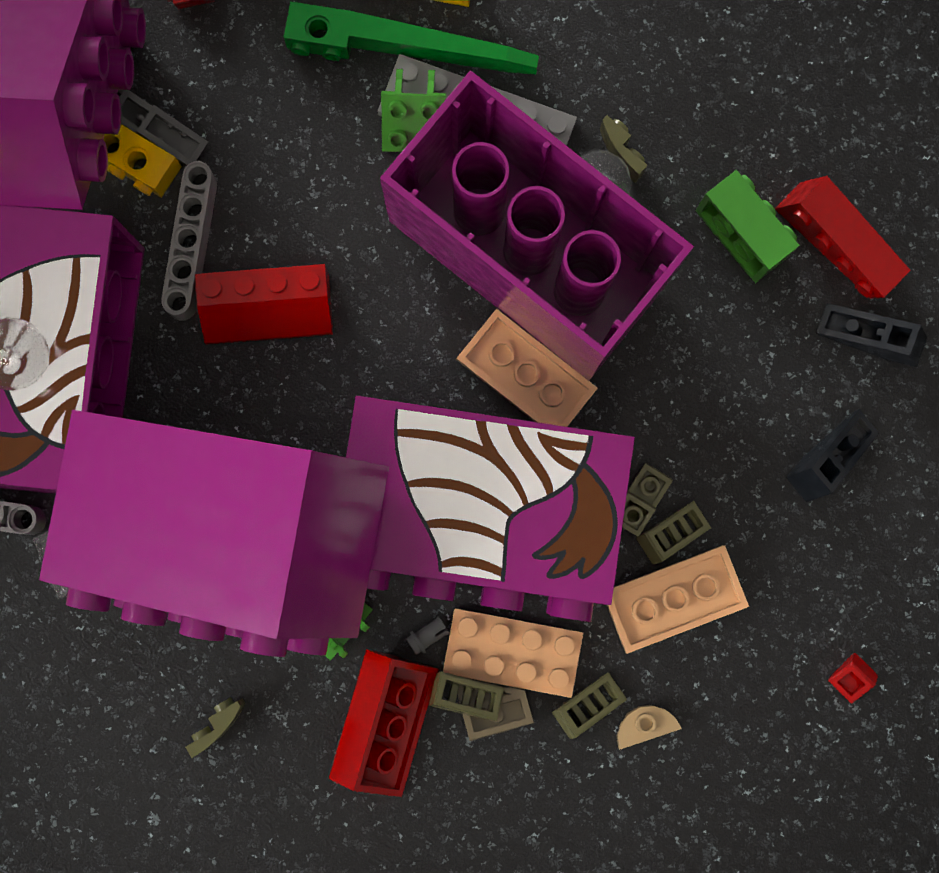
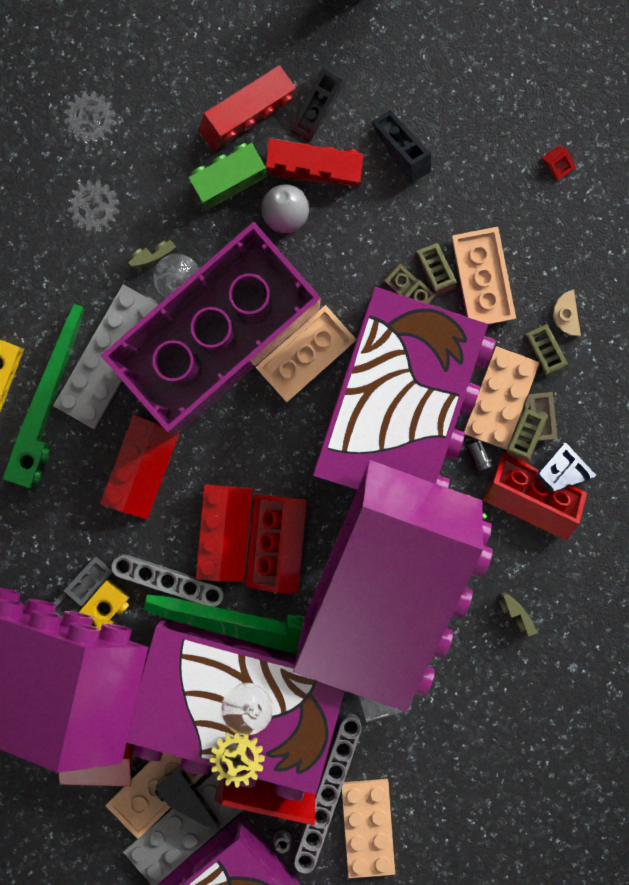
camera: 75 degrees left, 5 degrees up
(142, 324) = (250, 628): none -> green piece
(261, 377) = (276, 543): none -> red slope
(329, 177) = (139, 468): none -> red slope
(406, 112) = (107, 404): bright green plate -> none
(427, 757) = (563, 470): none -> wing
(685, 55) = (92, 216): none -> clear gear
(718, 310) = (285, 208): none -> light grey piece
(784, 24) = (98, 112): none -> clear gear
(786, 337) = (313, 163): none -> red wedge

